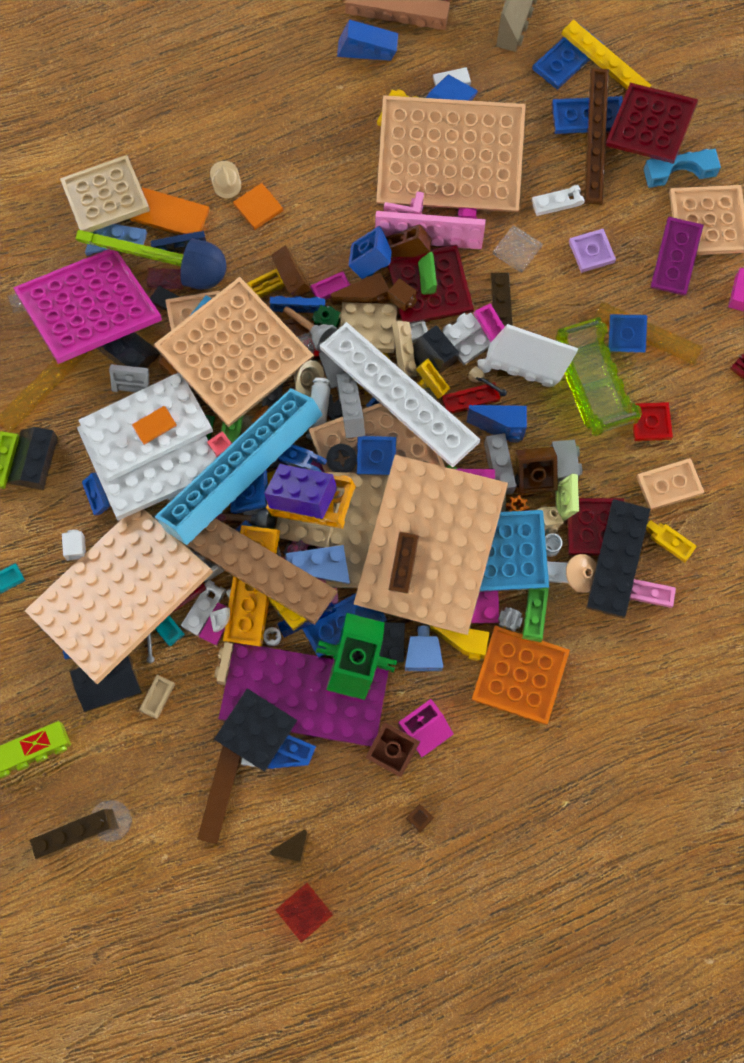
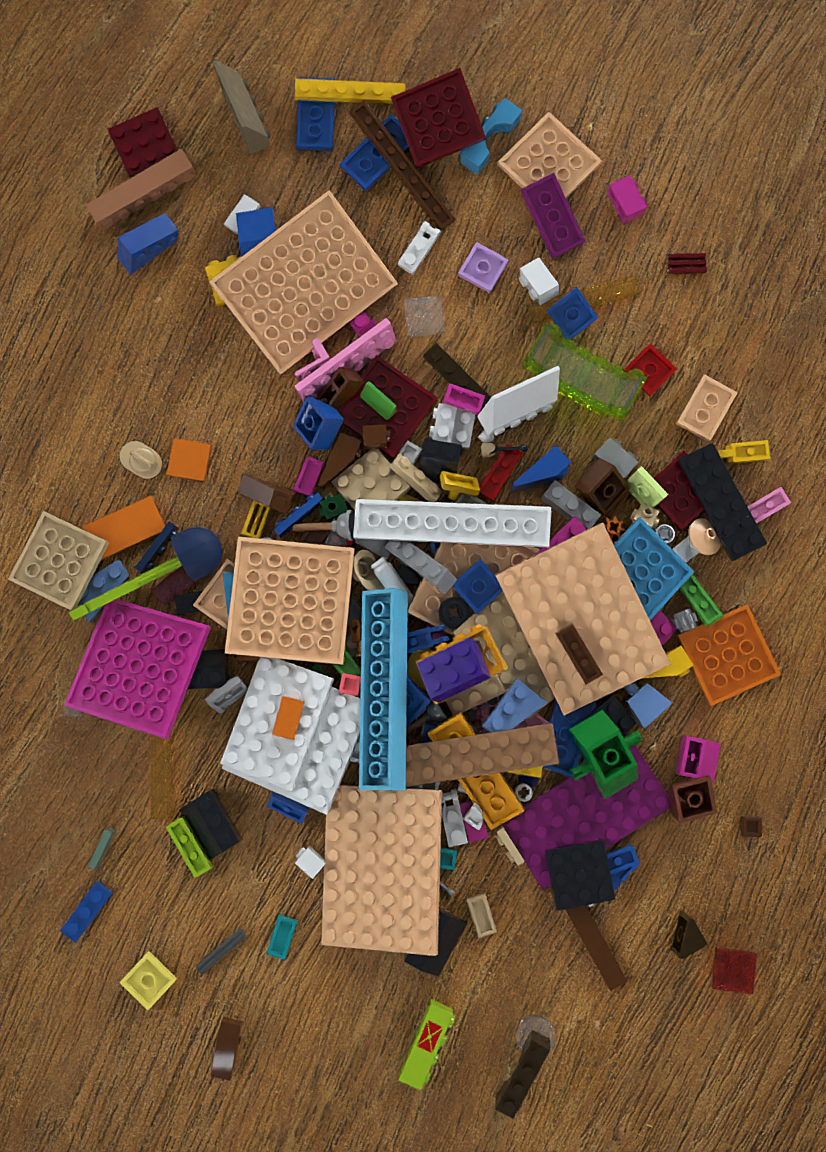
camera: 40 degrees left, 10 degrees up
(624, 291) = (538, 281): none -> white brick

